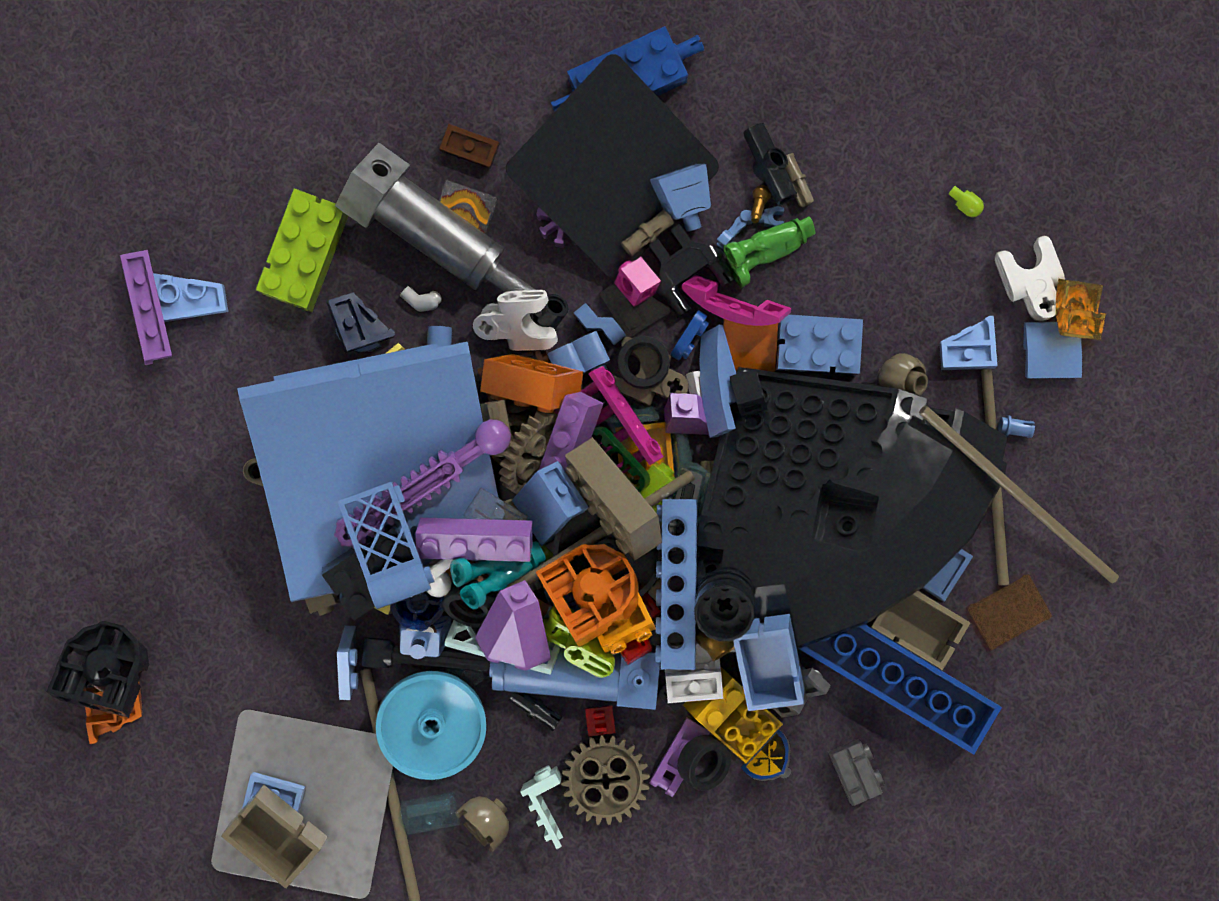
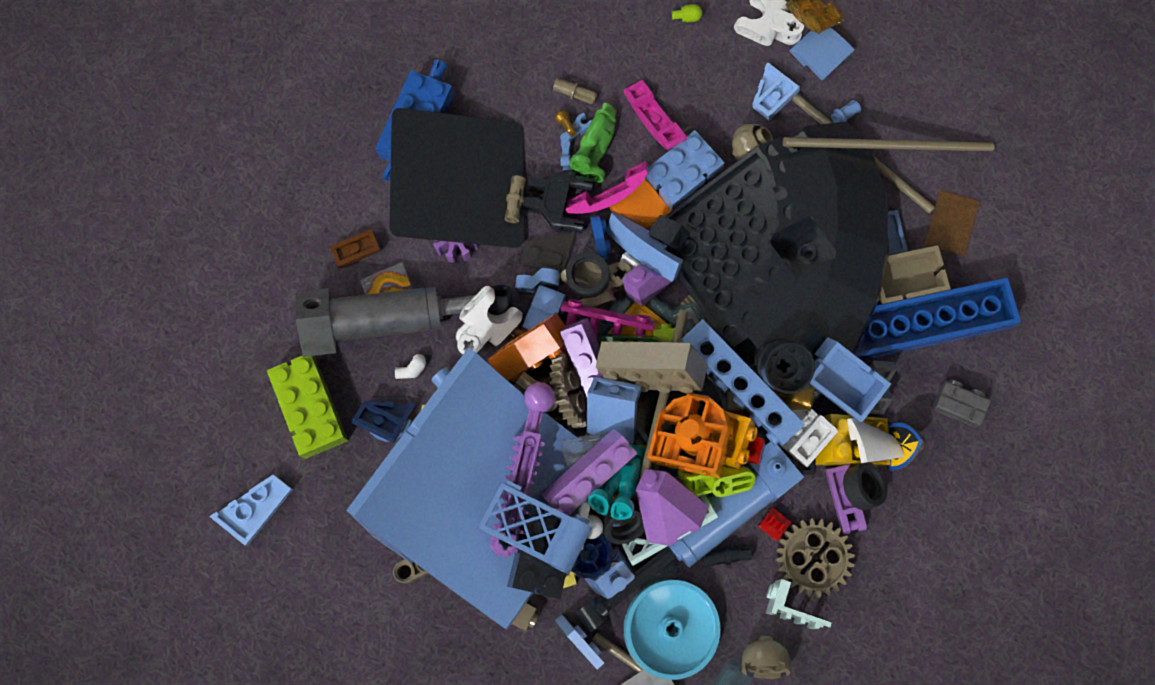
camera: 40 degrees left, 10 degrees down
(145, 306) = (235, 534): medium lavender fence -> none
(637, 281) = (536, 232): brick -> none
(684, 194) = (515, 156): medium blue torso -> none
(745, 736) = (873, 443): none -> white slope
(770, 164) = (550, 94): black piece -> none
(842, 271) = (653, 116): none -> dark pink slope

